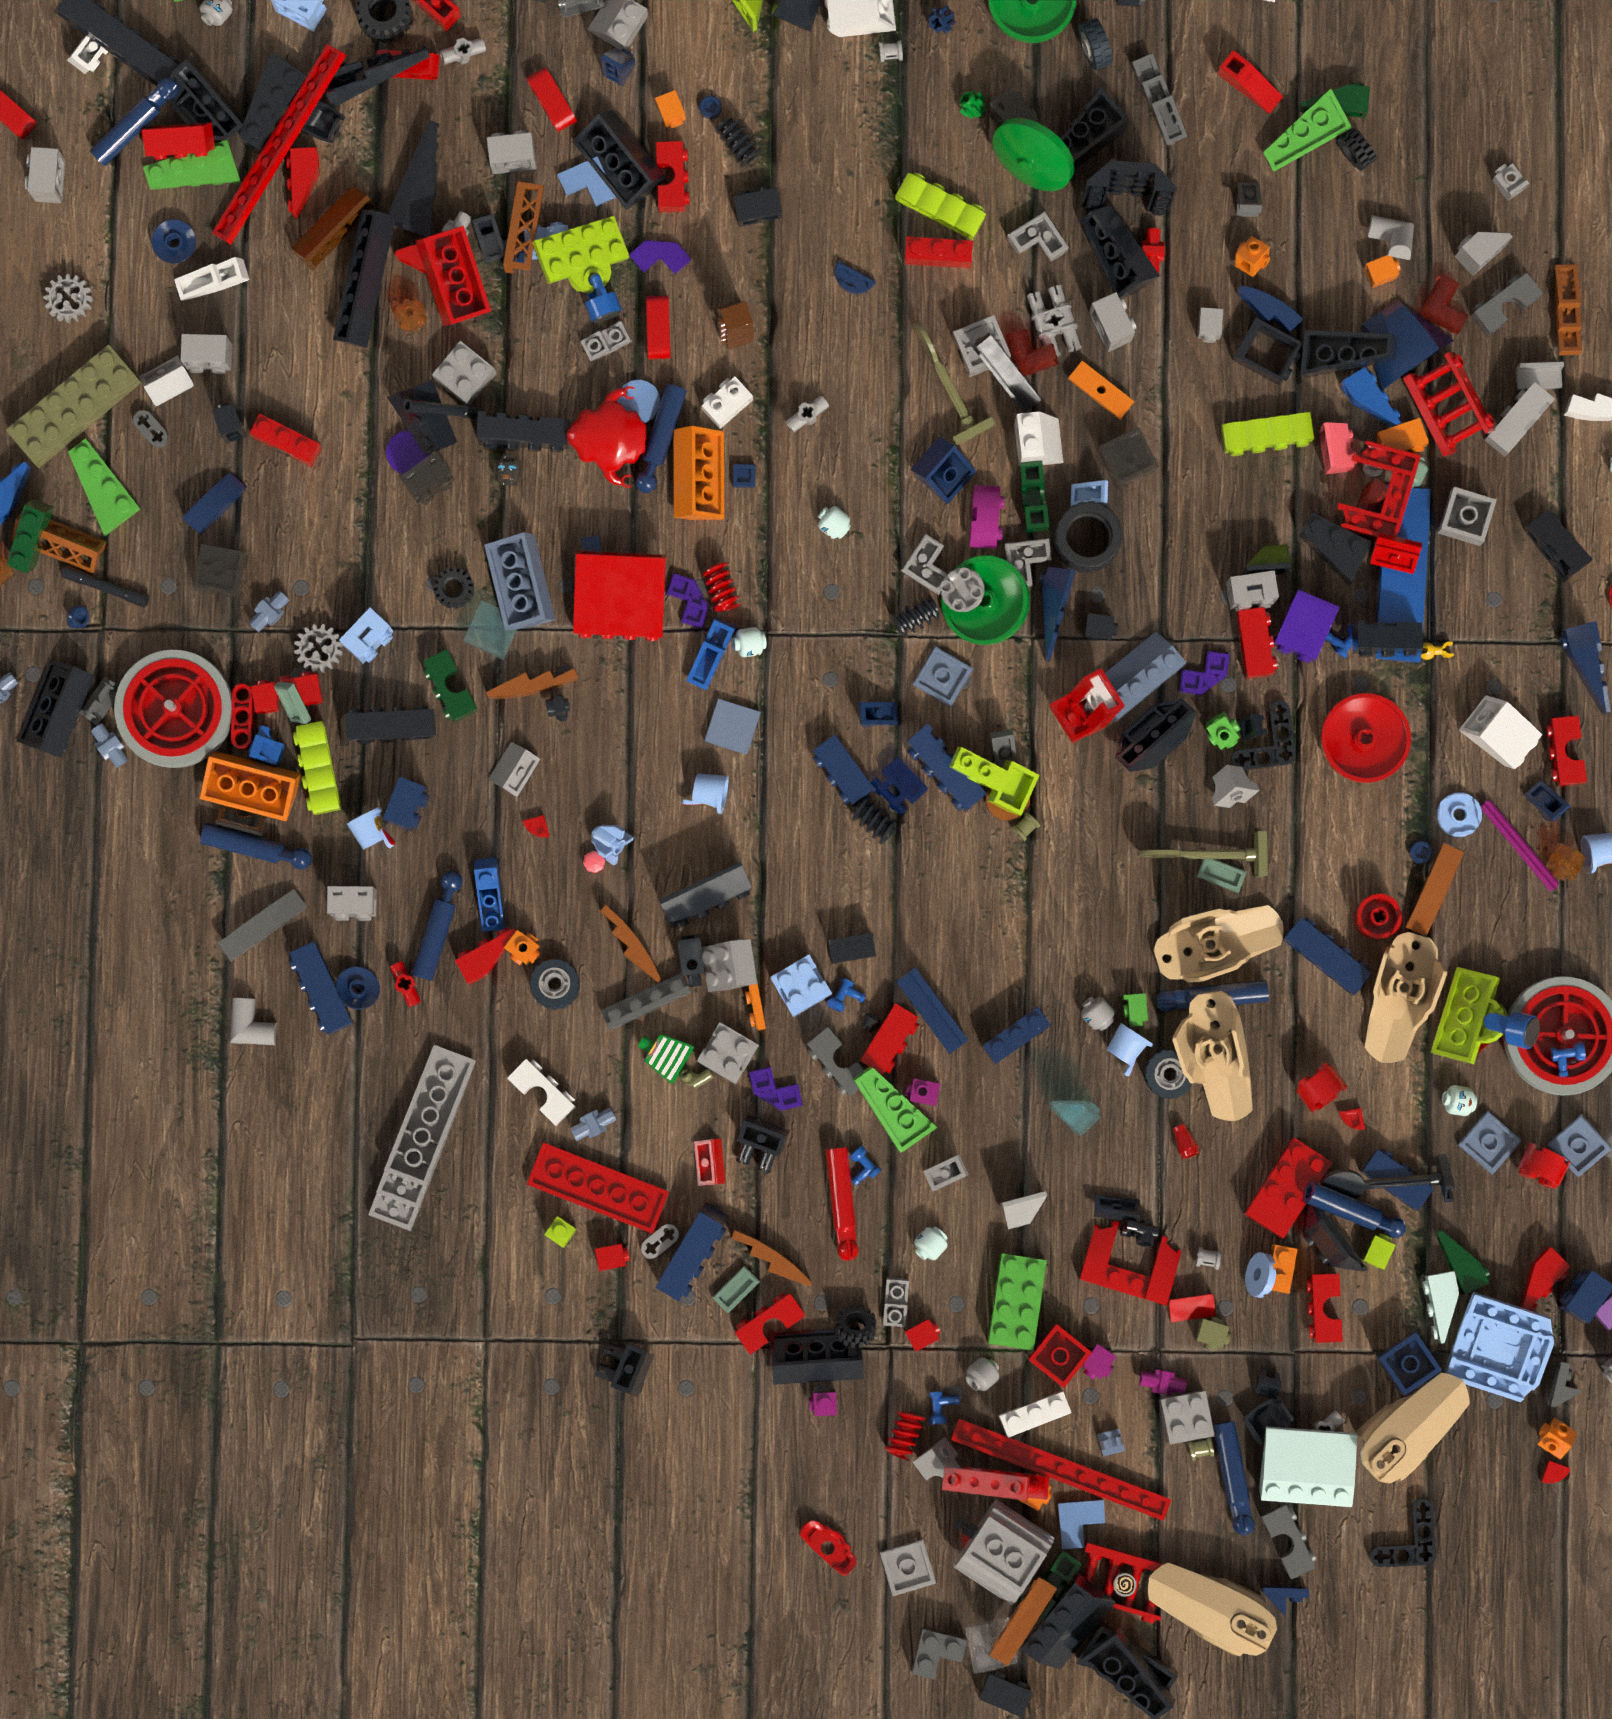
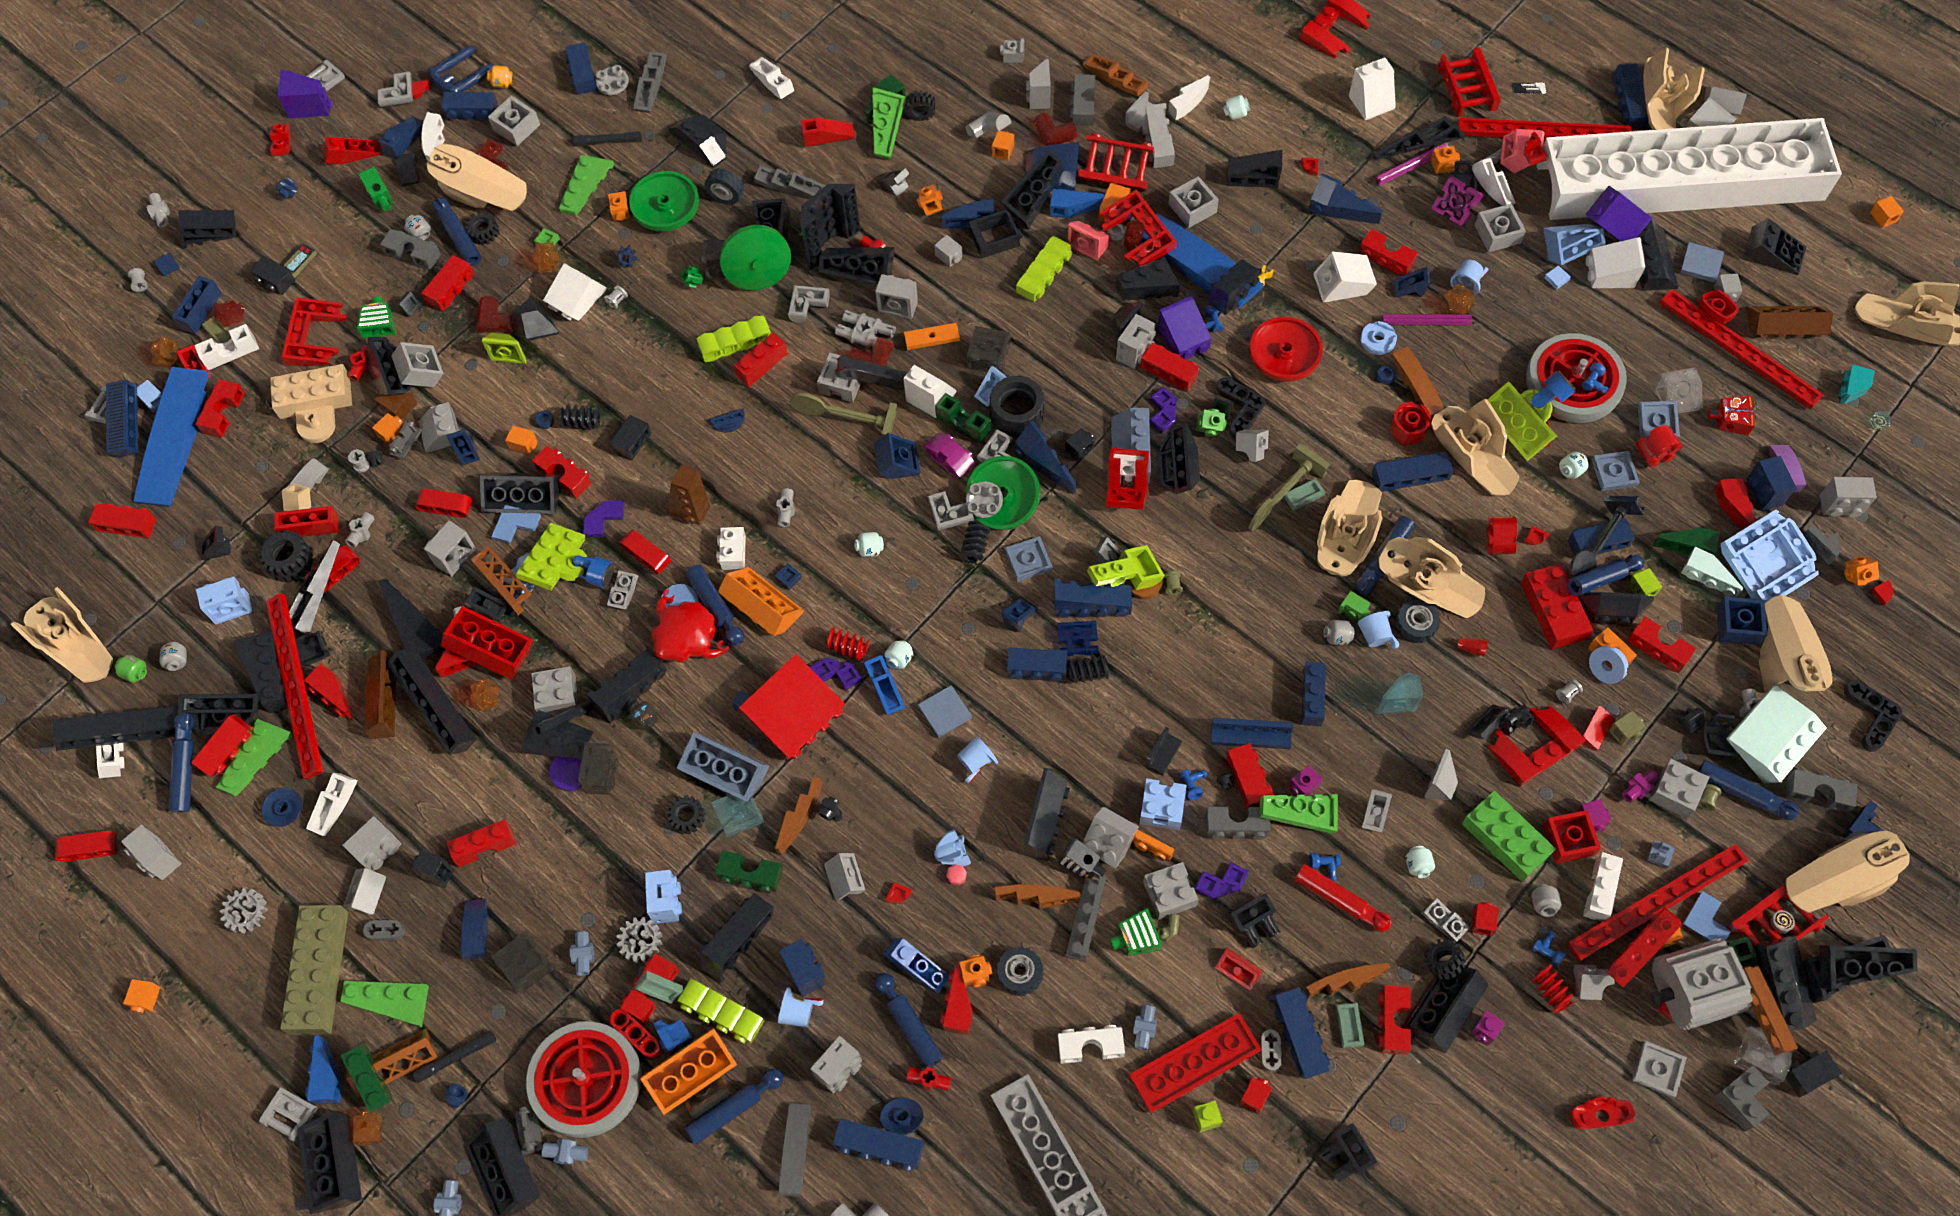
camera: 45 degrees left, 20 degrees down
(1396, 553) = (1184, 247): red plate -> none

